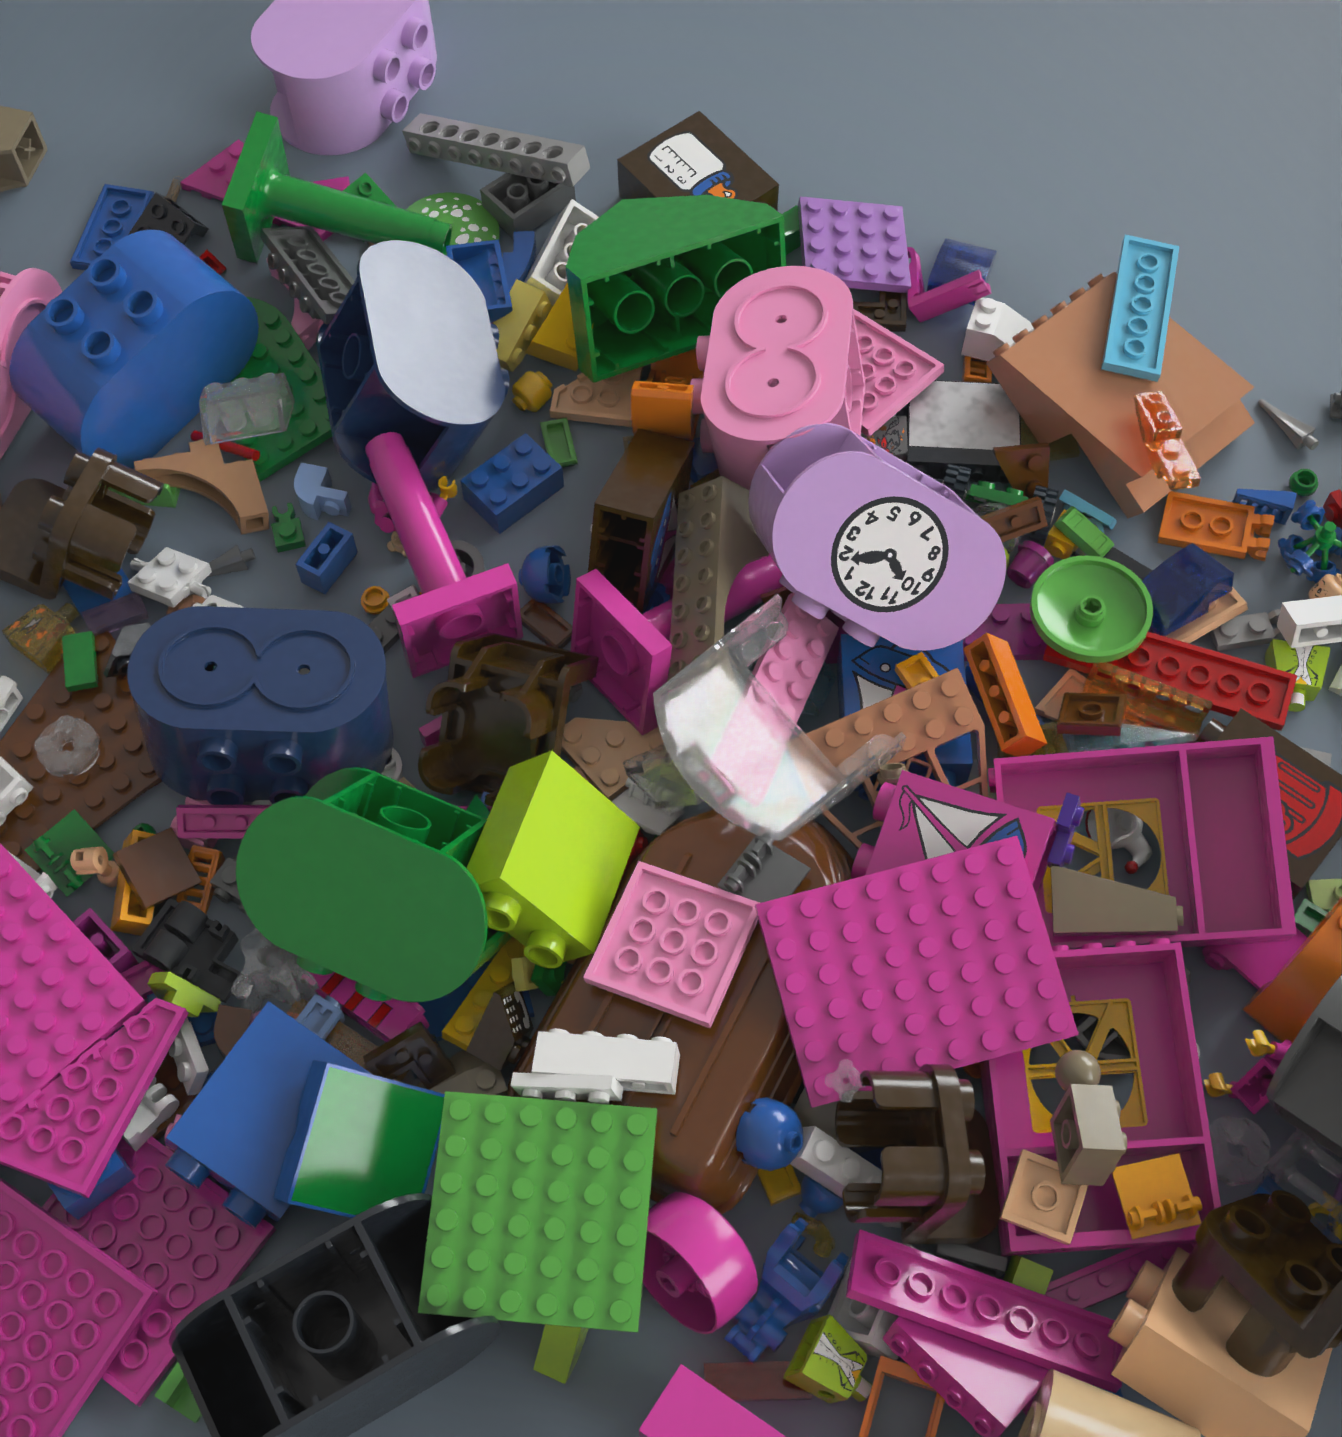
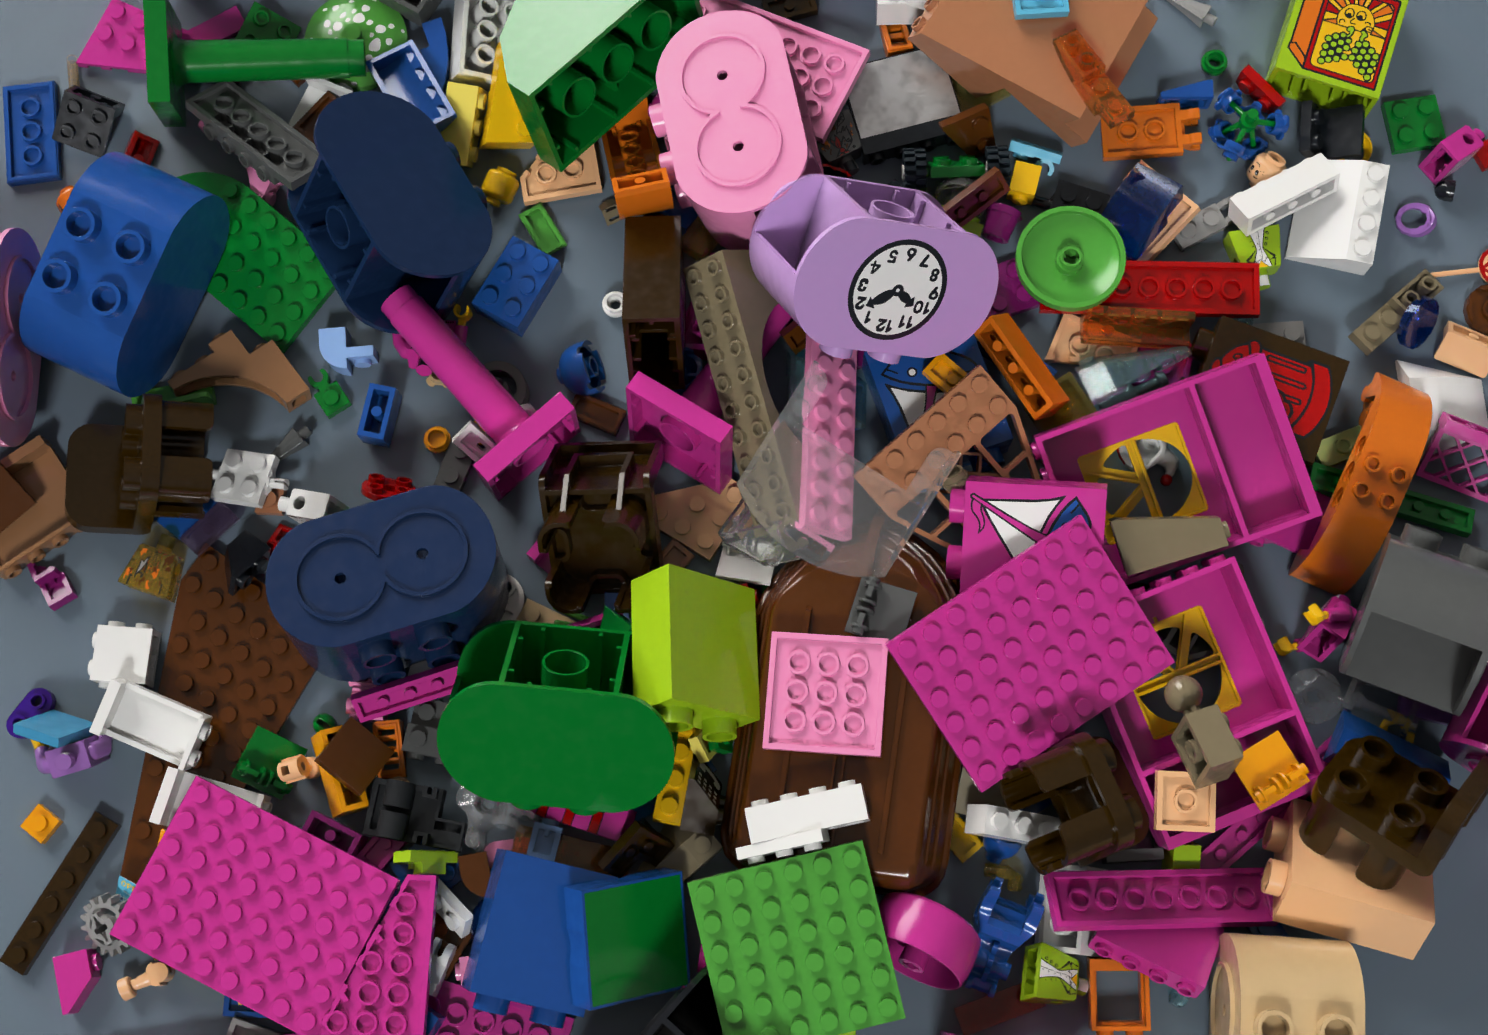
camera: 15 degrees left, 15 degrees up
(59, 733) = (231, 684): clear plate -> none
(80, 661) = (200, 586): green tile -> none
(231, 447) = (241, 331): red bar -> none
(245, 408) = (248, 295): clear slope -> none
(769, 1135) = (955, 823): blue cylinder -> none
(835, 1080) = (1009, 771): clear plate -> none
(1069, 817) = (1116, 477): dark purple plate -> none
(1083, 533) = (1041, 181): bright green tile -> none
(1091, 714) = (1098, 357): reddish brown tile -> none

